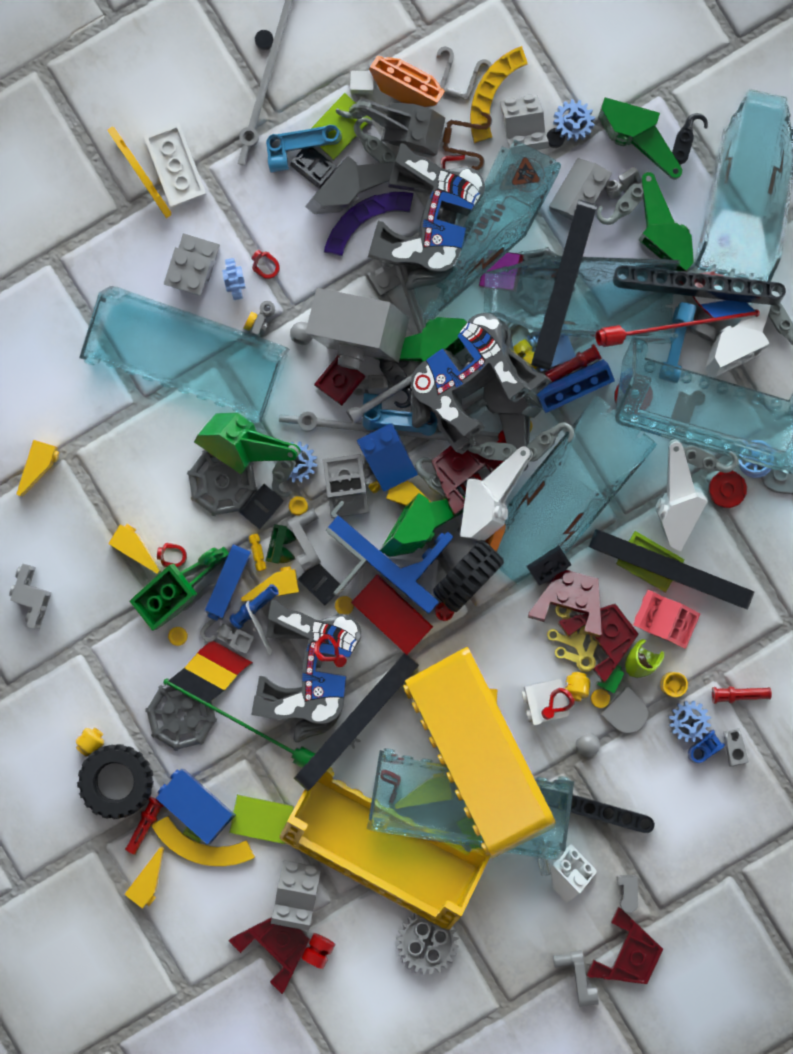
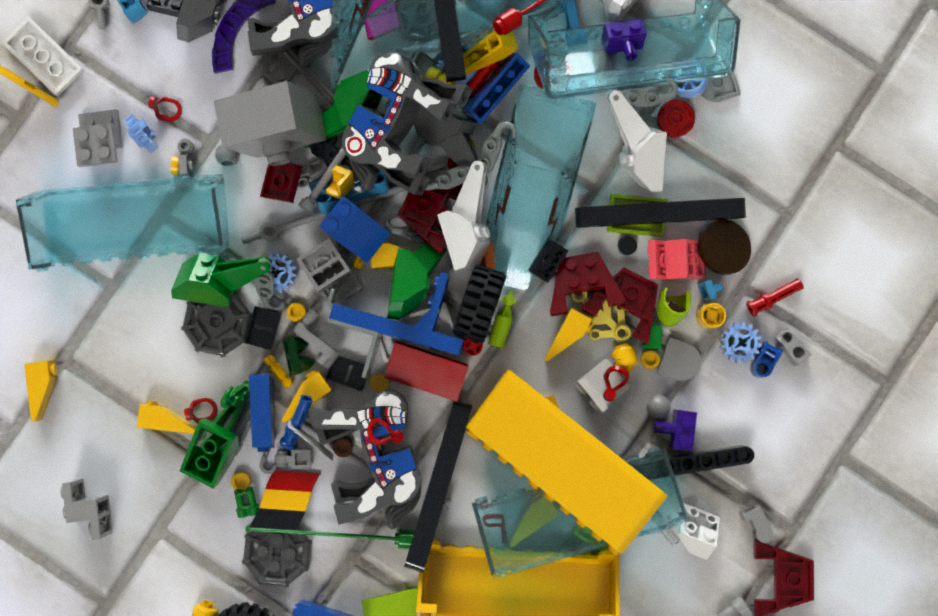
camera: 25 degrees left, 0 degrees up
(170, 663) = (249, 509): none -> green piece
(284, 648) = (343, 447): none -> reddish brown tile
(394, 408) = (342, 182): none -> yellow panel
(481, 602) = (502, 322): none -> lime wheel
(541, 638) = (572, 330): none -> yellow slope
(582, 350) = (489, 51): none -> yellow slope
(597, 774) = (681, 429): none -> dark purple brick
(628, 585) = (627, 245): none -> black tile
(682, 660) = (708, 290): none -> dark azure tile
(712, 395) = (624, 37): none -> dark purple brick
(715, 627) = (724, 247): none -> dark brown piece

